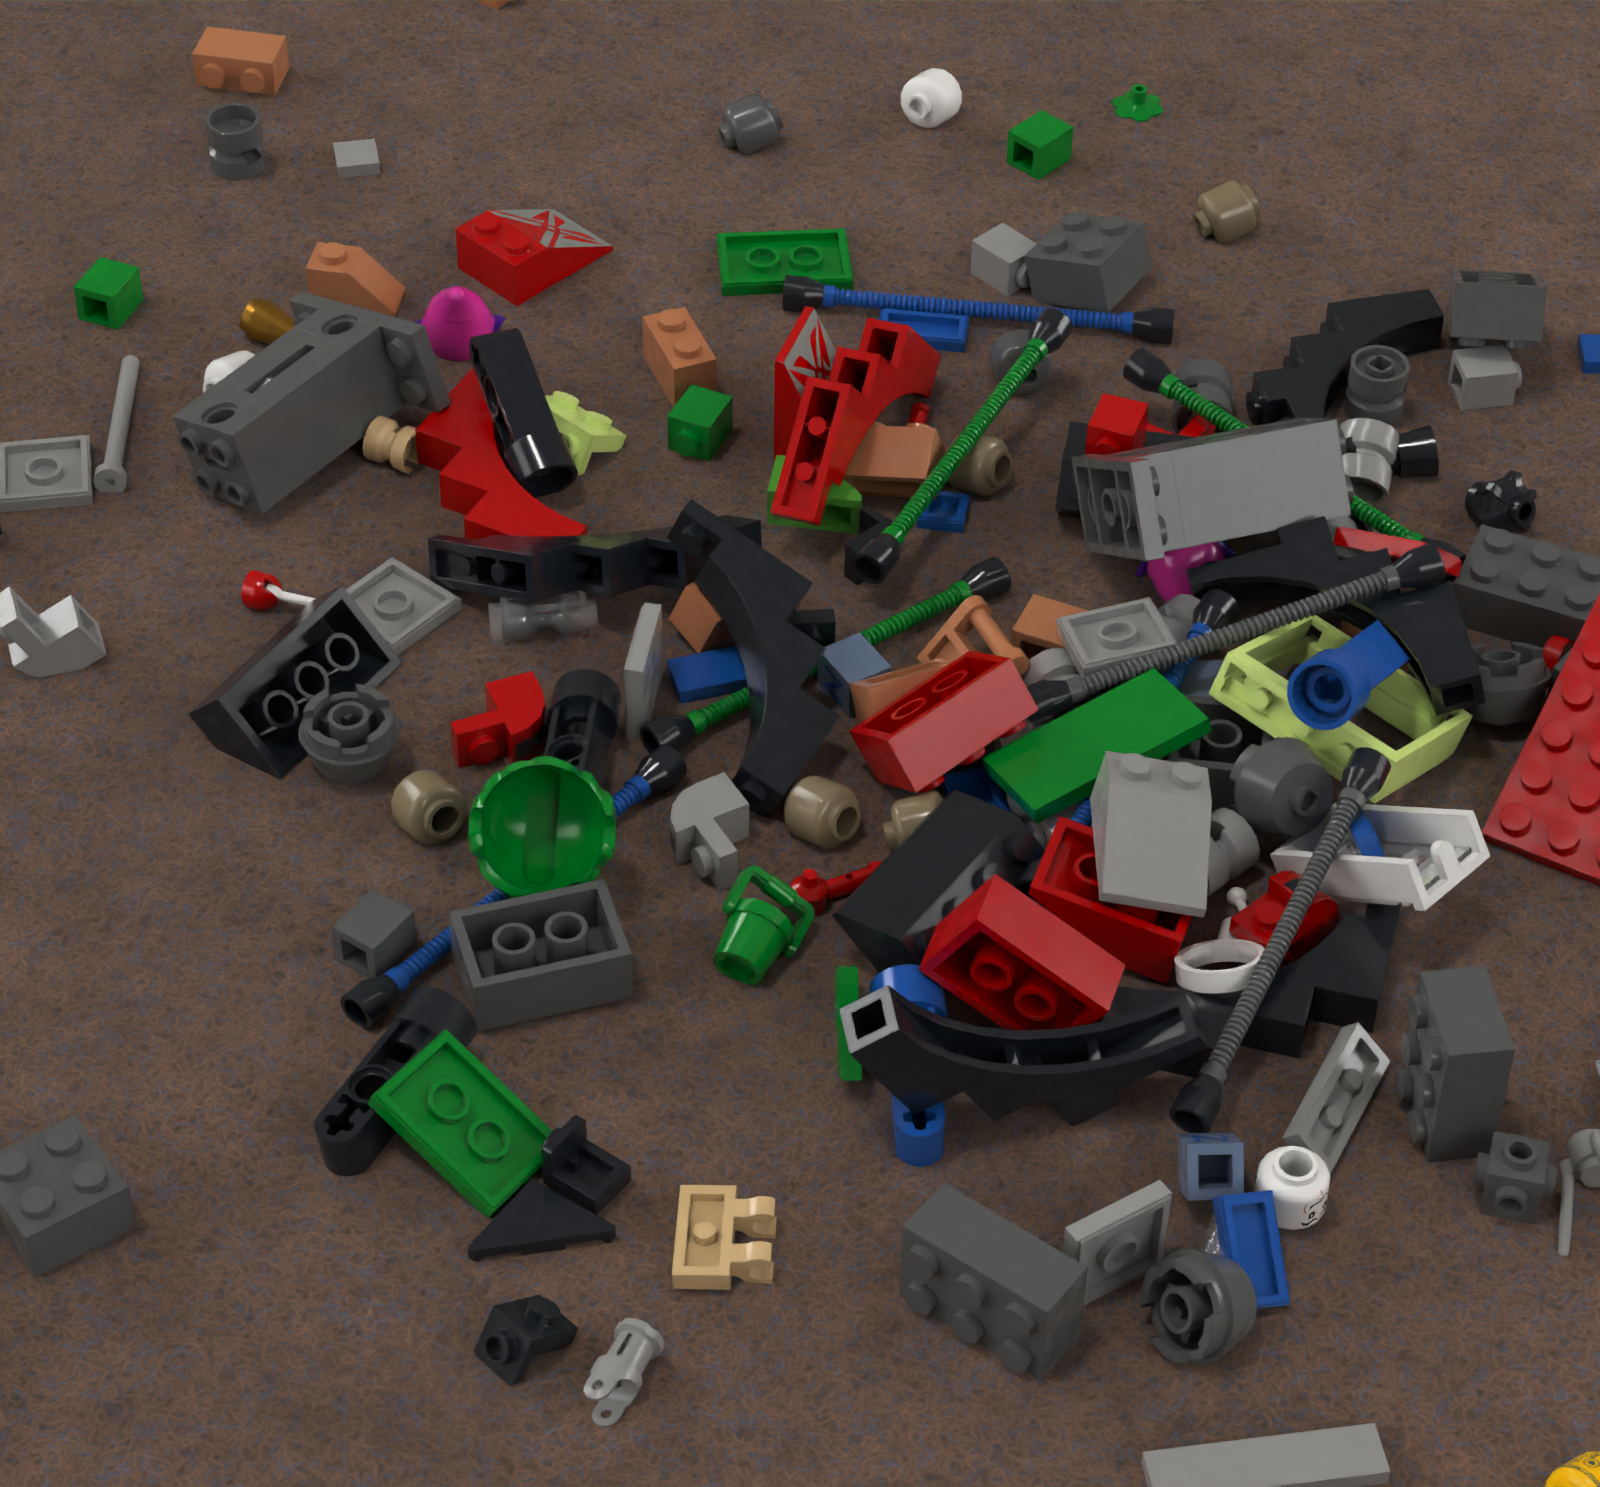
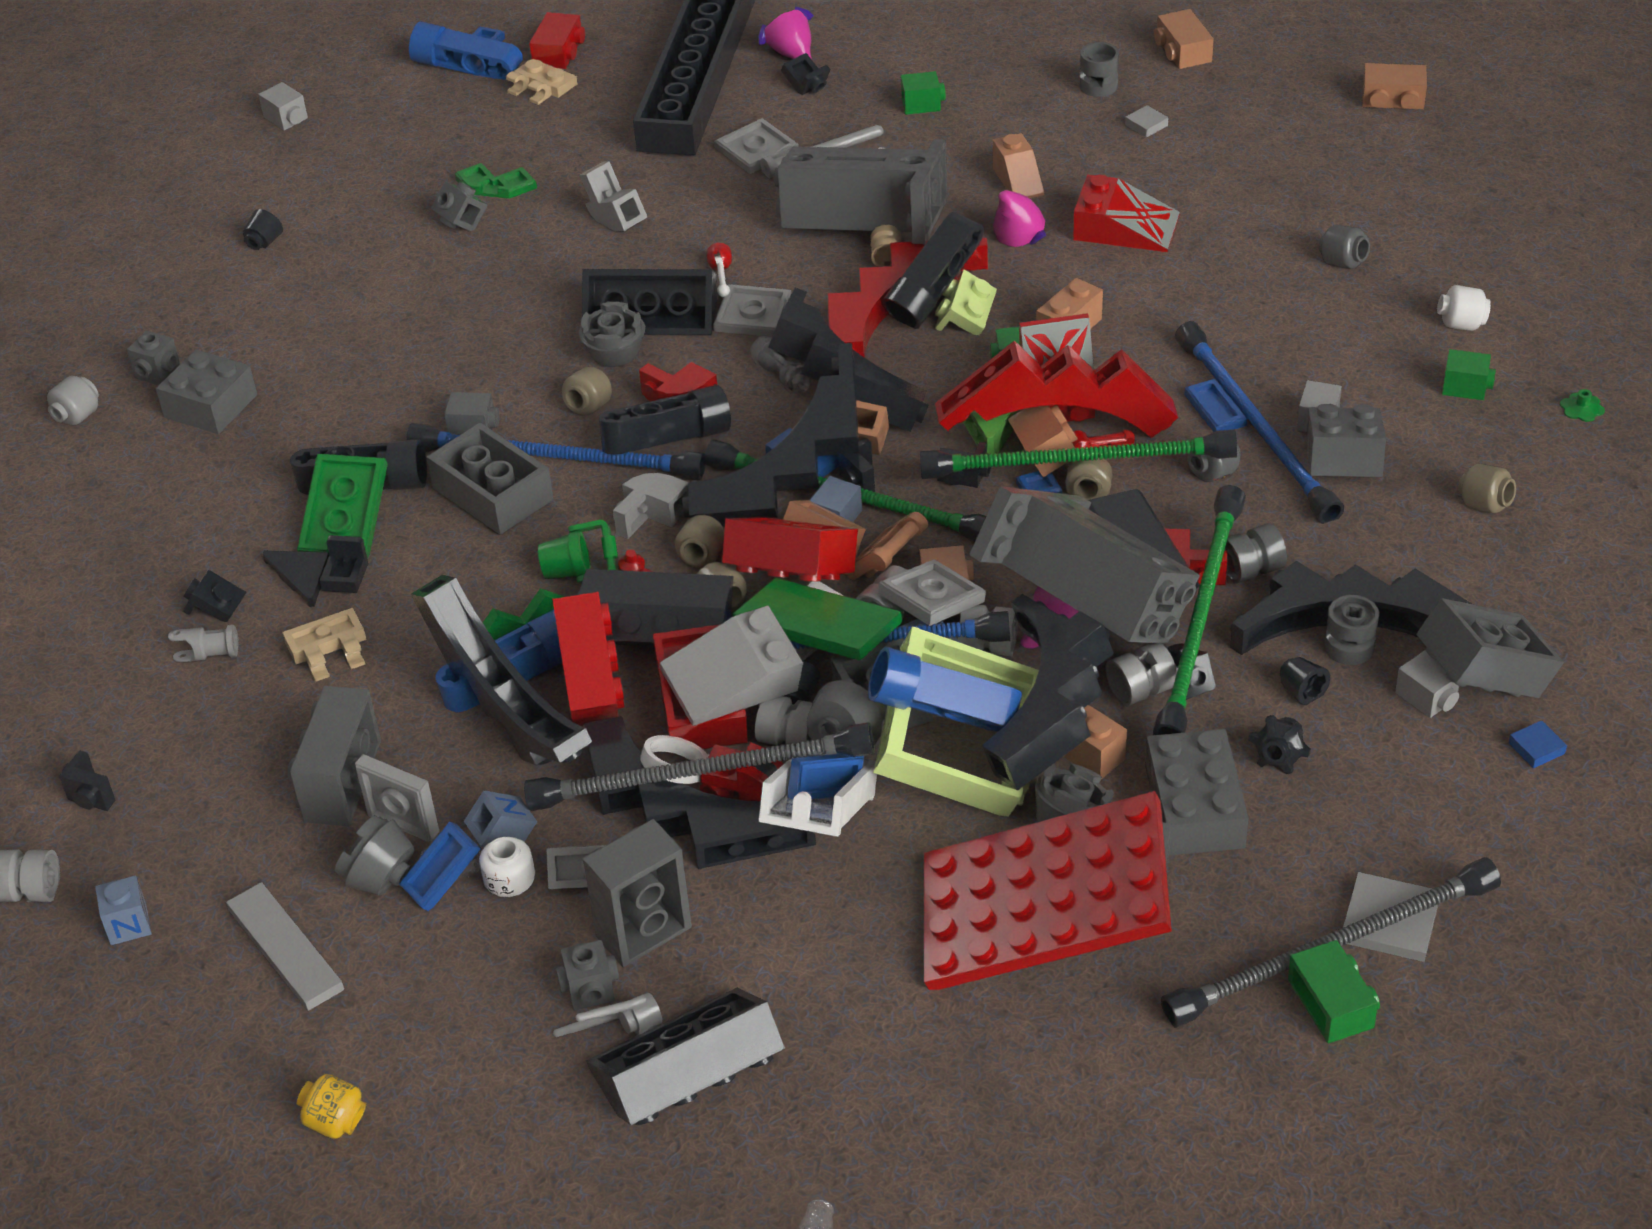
camera: 65 degrees right, 0 degrees up
(265, 321) = (956, 157): pearl gold cone -> none
(541, 827) = (559, 422): green piece -> none
(643, 670) = (750, 414): light grey tile -> none
(760, 260) = (1228, 321): green tile -> none
(1116, 425) = (1123, 503): red brick -> none
(1364, 541) = (1128, 686): red plate -> none
(1368, 457) = (1253, 650): light grey wheel -> none
(1412, 570) = (1069, 681): dark grey hose -> none

